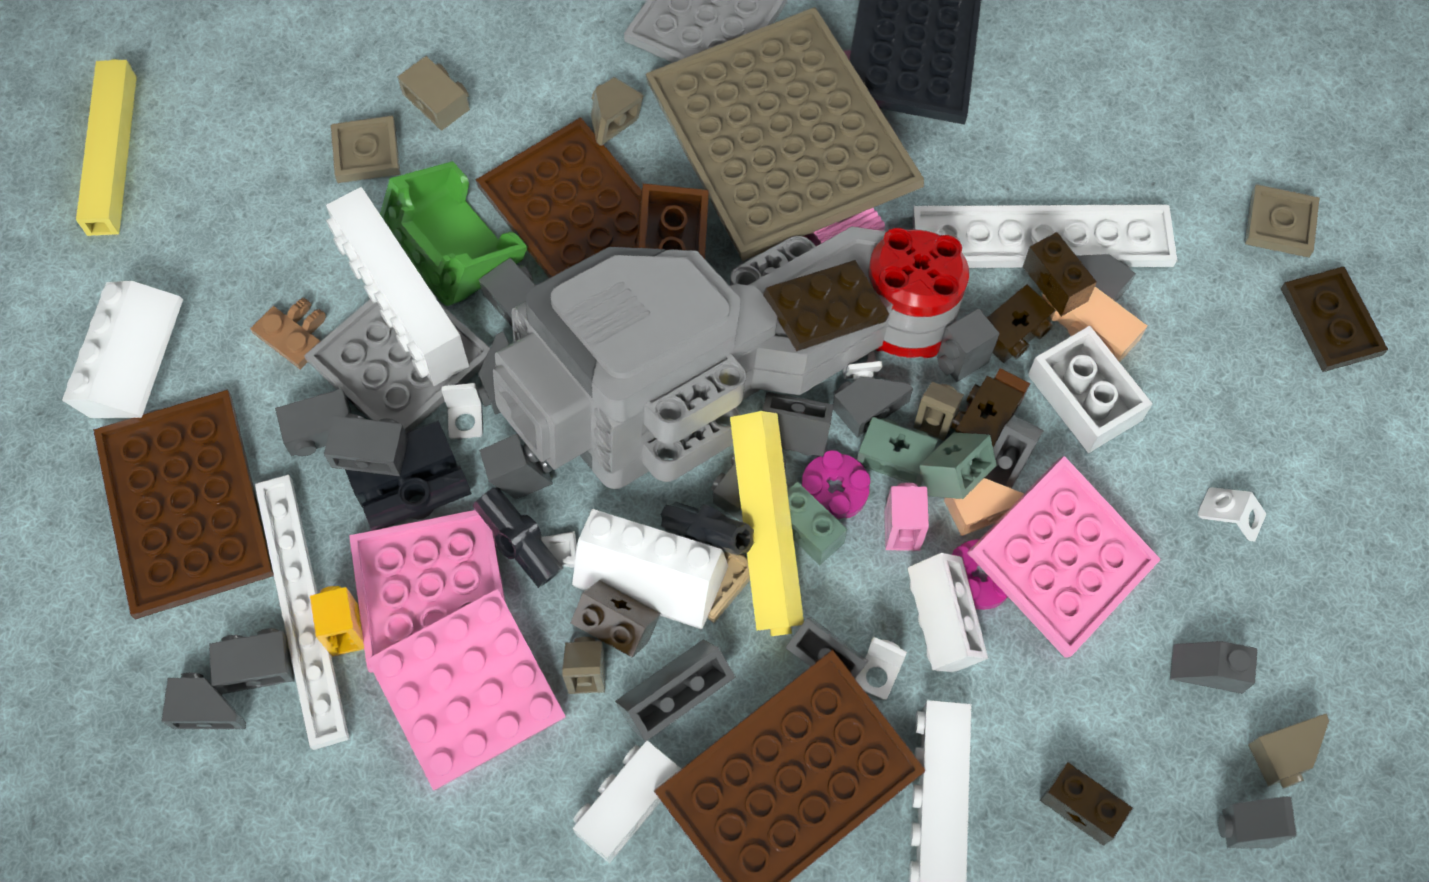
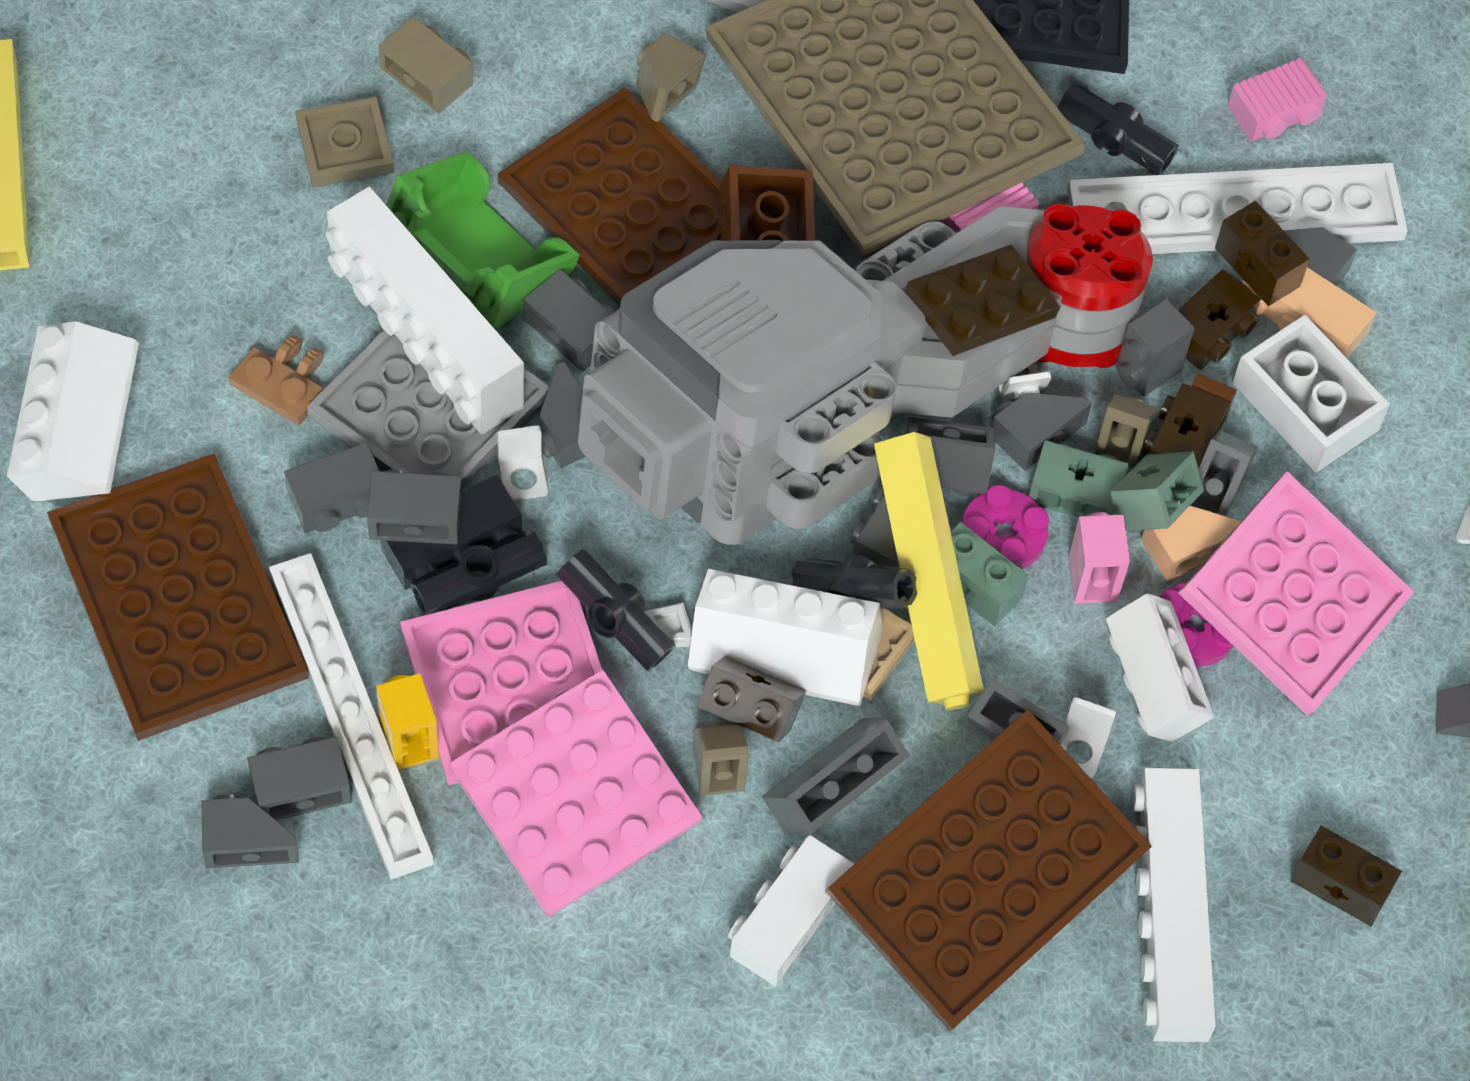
camera: 10 degrees left, 5 degrees down
(515, 467) = (607, 523): dark grey brick -> none
(955, 167) = (1117, 129): none -> black piece
(1082, 150) = (1277, 100): none -> bright pink brick

